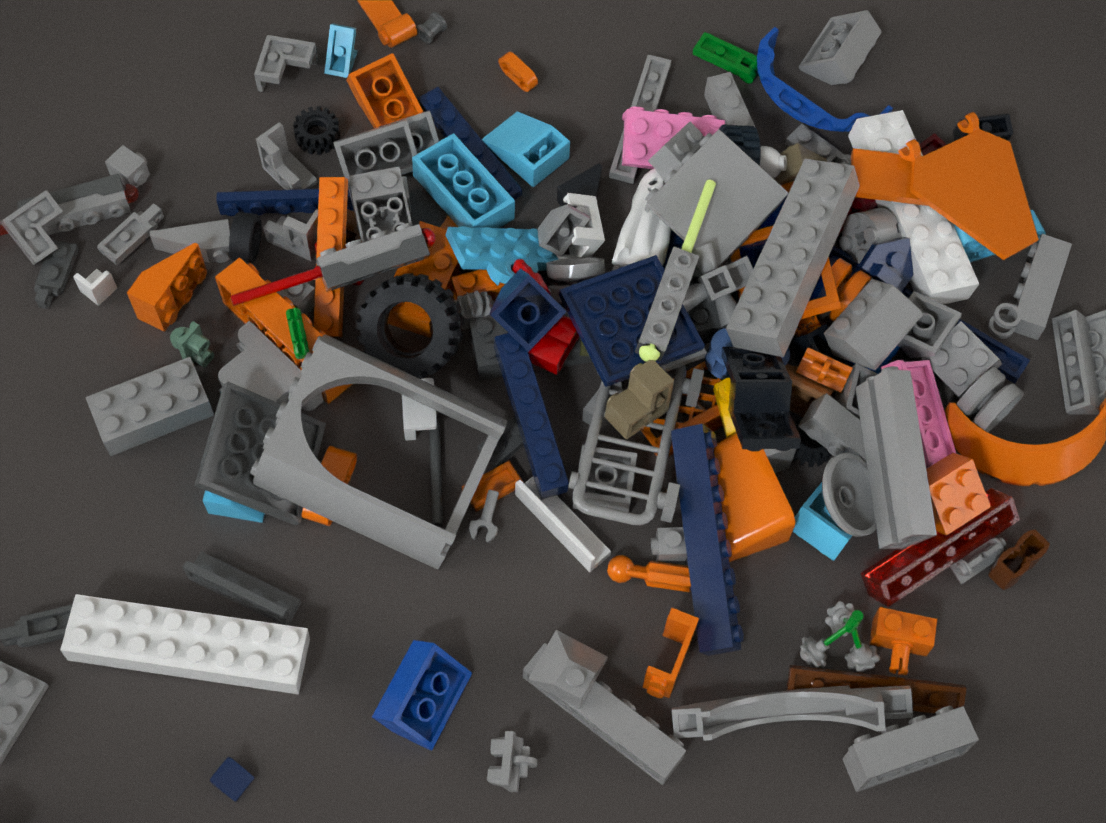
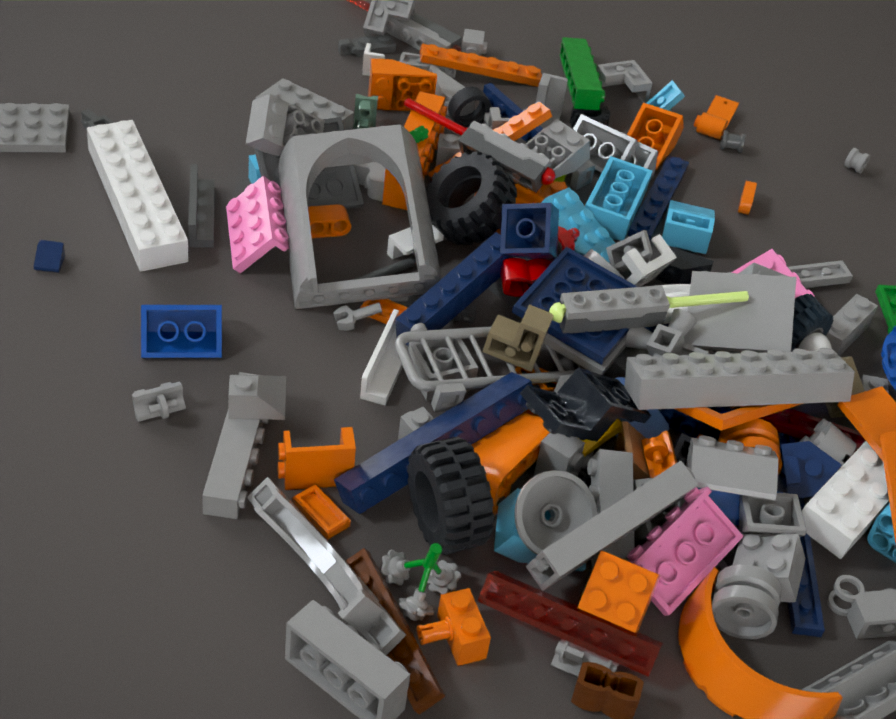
camera: 55 degrees right, 20 degrees down
(172, 183) = (480, 65): none -> orange plate
(223, 452) = (276, 122): none -> light grey slope
(253, 97) = (581, 74): none -> green brick
(311, 547) = (256, 223): none -> bright pink bracket
(654, 573) = (386, 431): orange piece -> none
(714, 680) = (321, 511): none -> orange tile
(790, 567) = (450, 495): none -> black tyre

